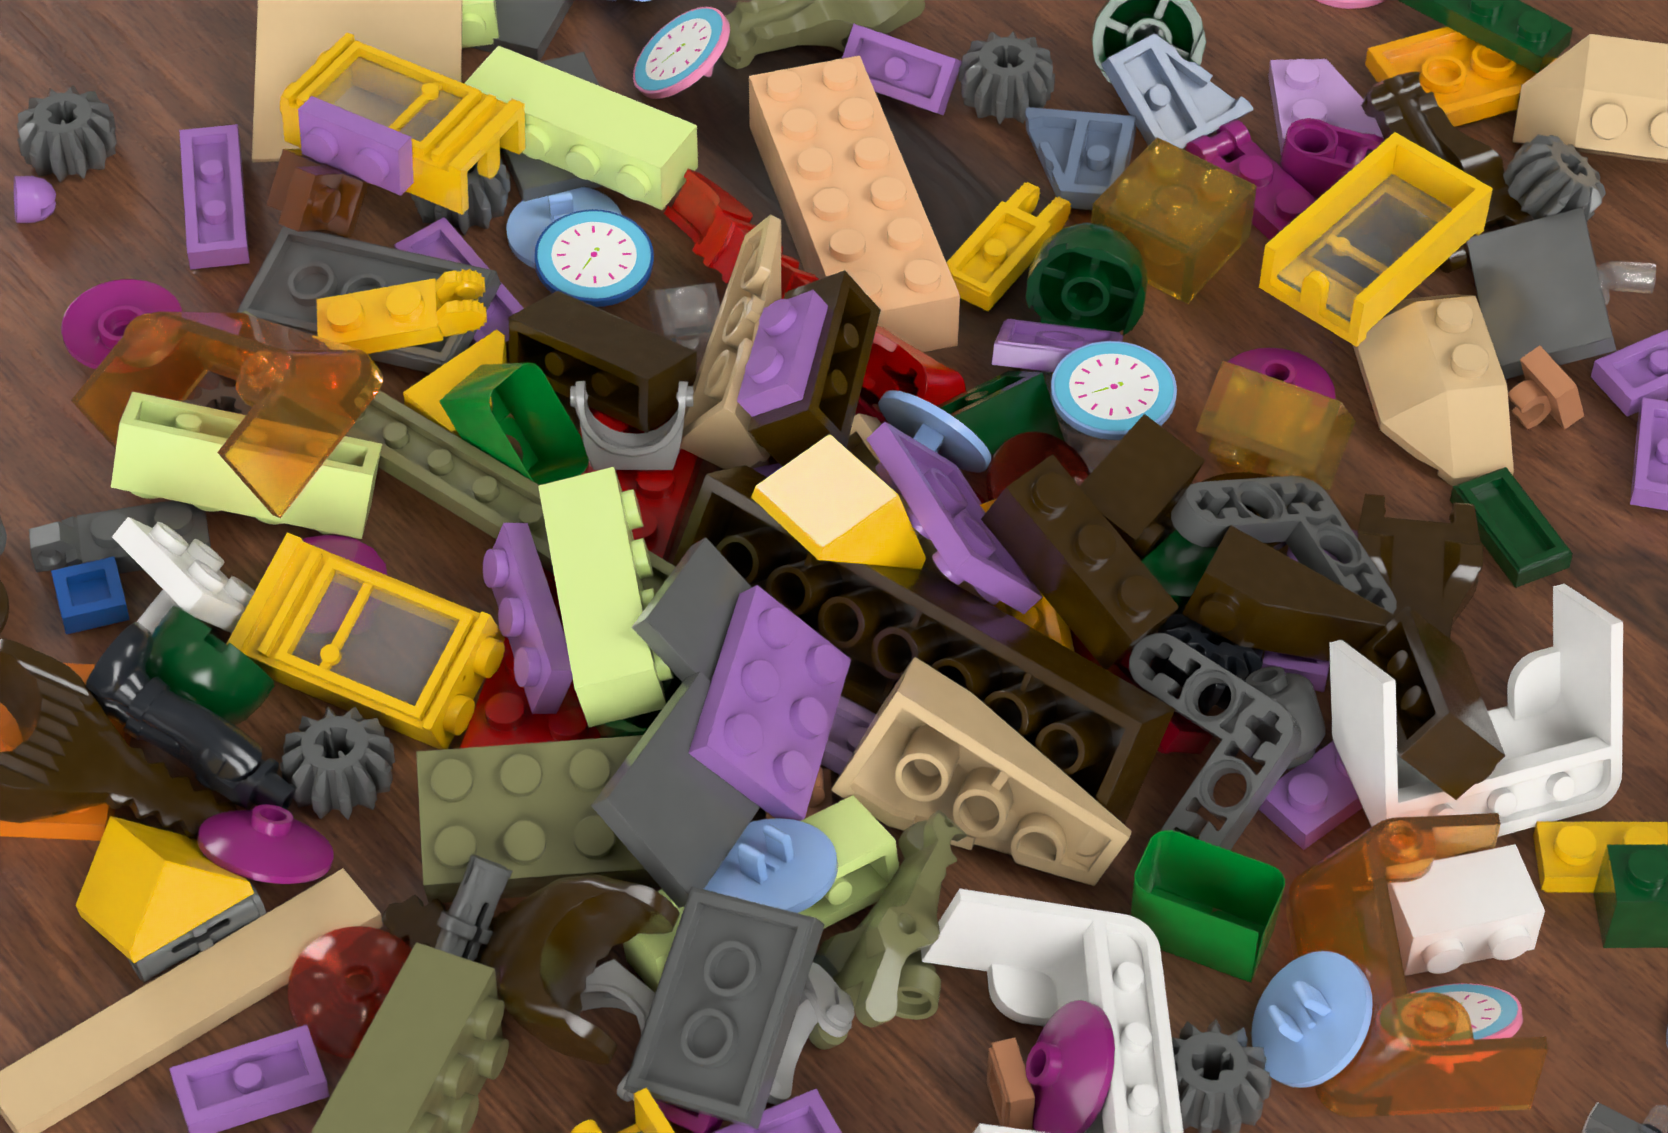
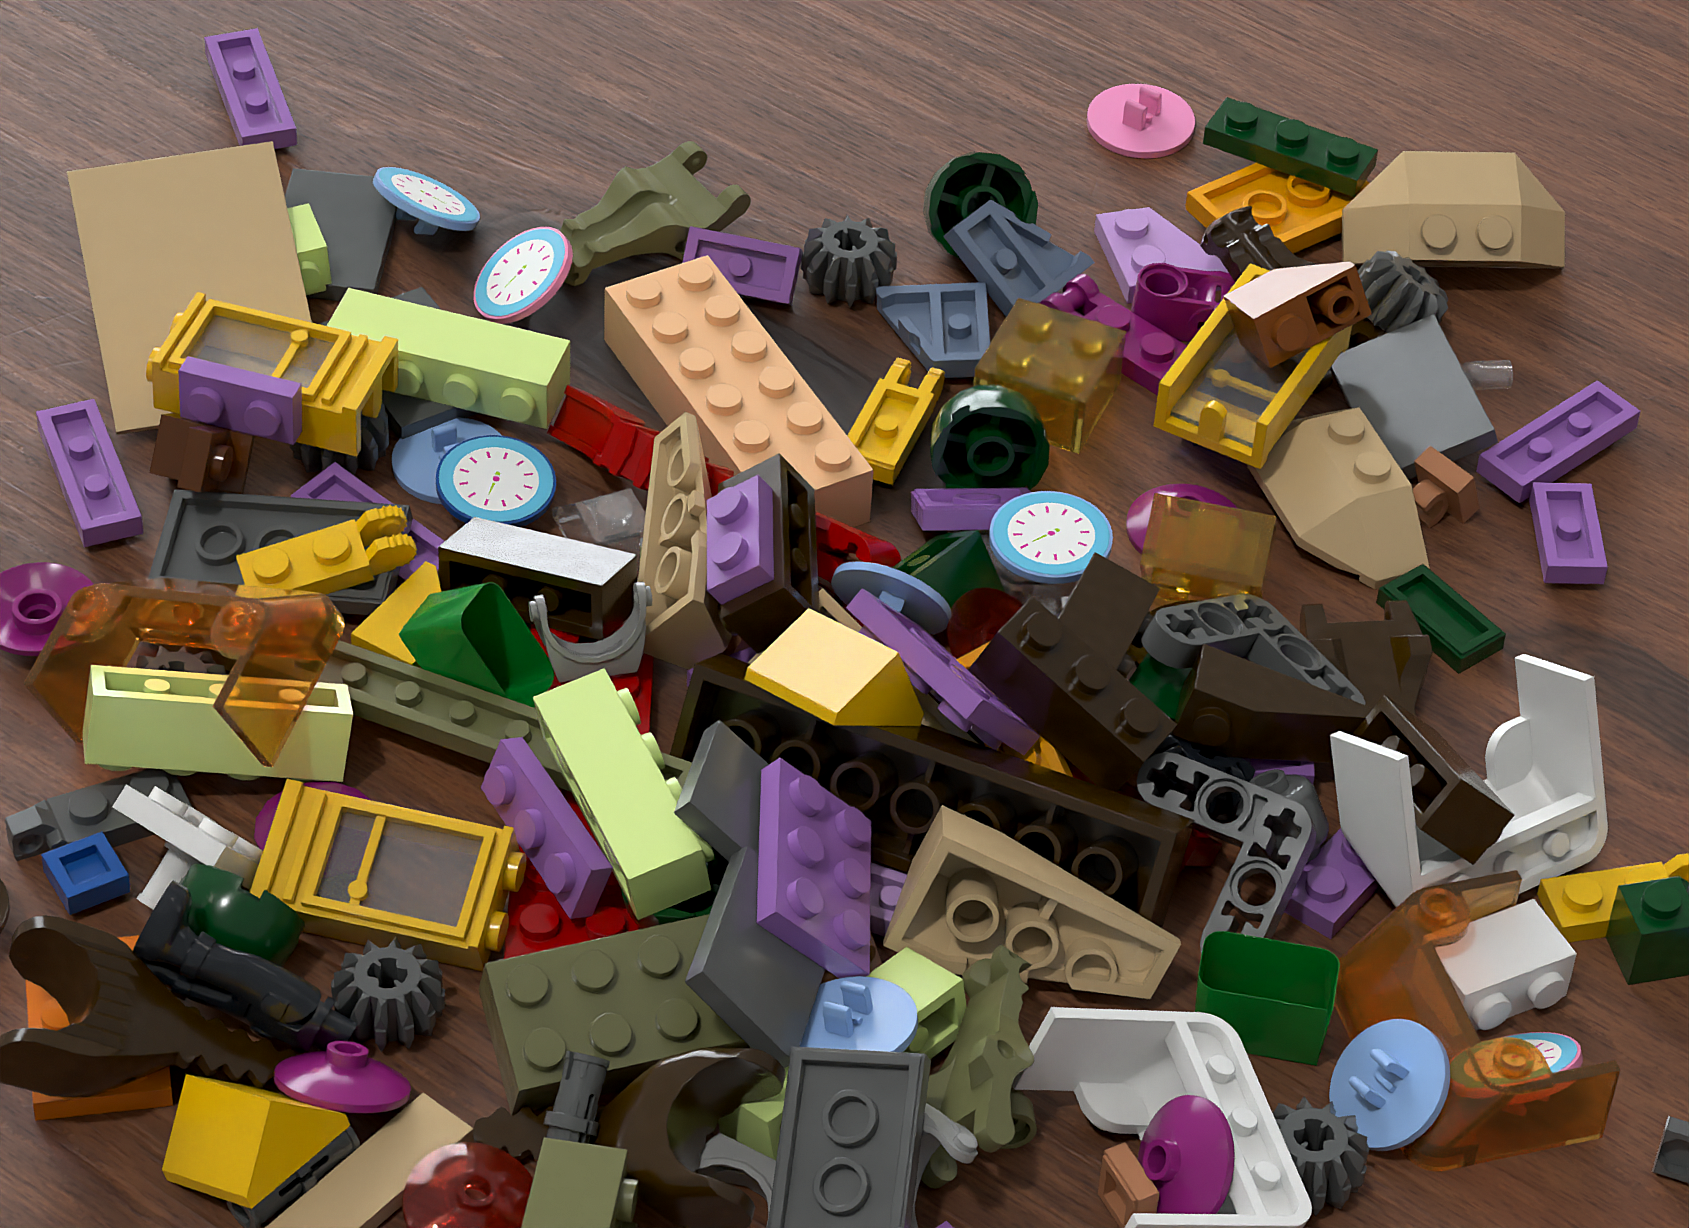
camera: 15 degrees left, 5 degrees down
(1426, 186) = (1296, 308): none -> dark orange slope

